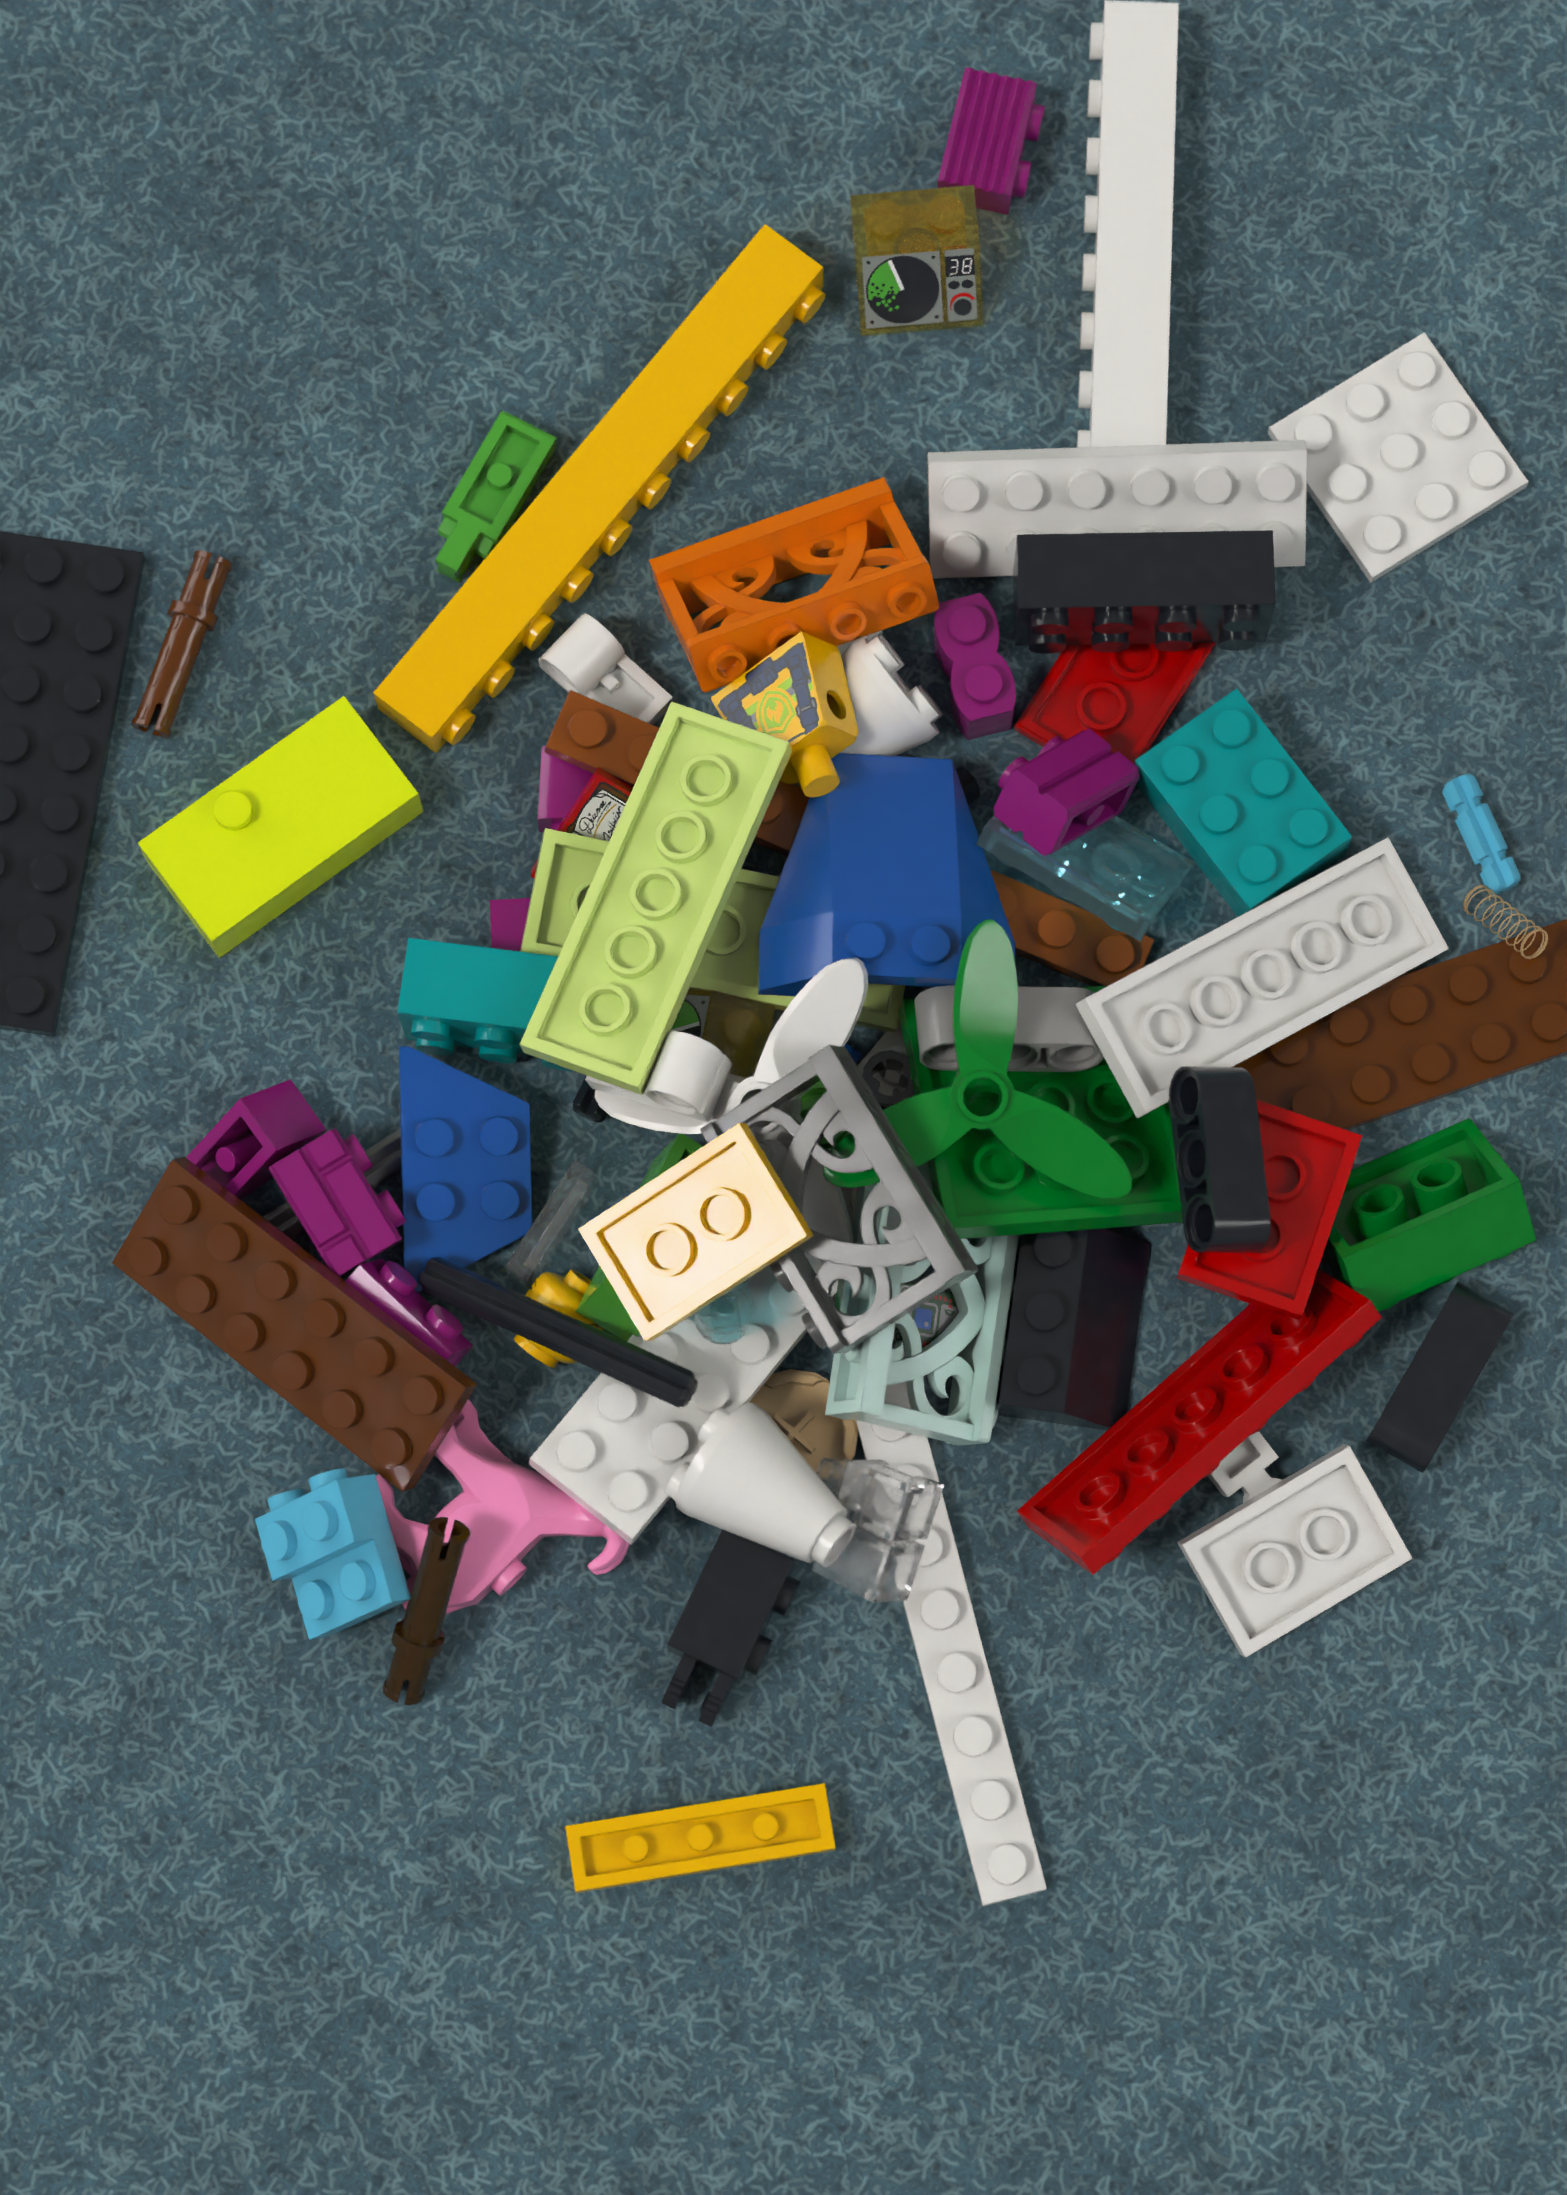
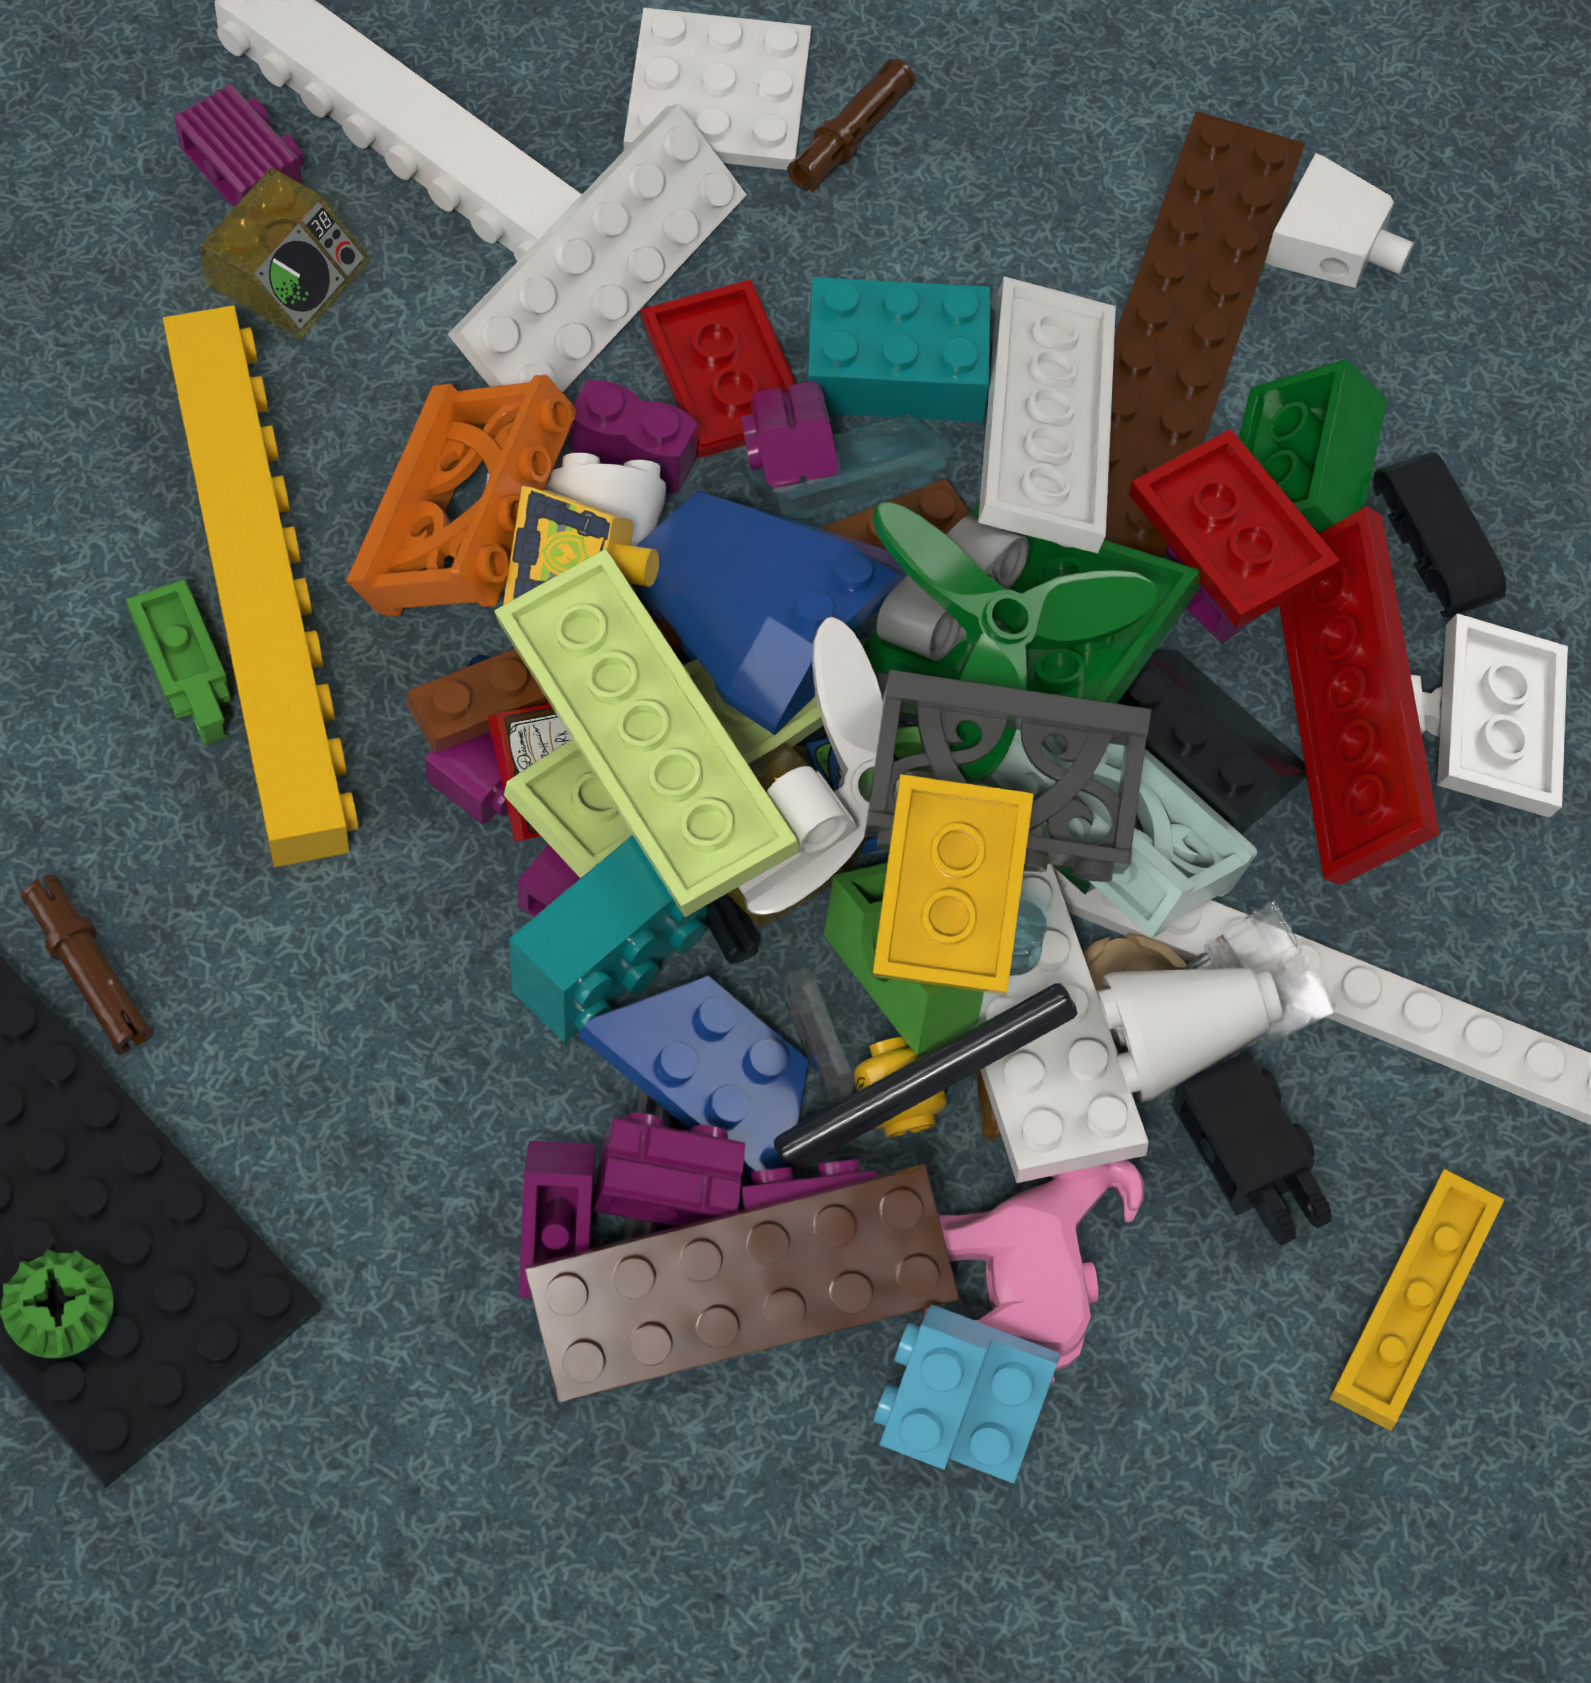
camera: 60 degrees left, 15 degrees down
(281, 826) = (310, 997): neon yellow brick -> none
(419, 1634) = (1086, 1377): dark brown pin -> none
(596, 666) = (381, 676): white plate -> none
(1143, 590) = (685, 275): black brick -> none
(1219, 1159) = (1212, 511): black beam -> none
(1438, 594) = (838, 138): none -> reddish brown pin
(1481, 834) = (1044, 232): medium azure axle -> none
(1526, 937) = (1160, 233): tan piece -> none

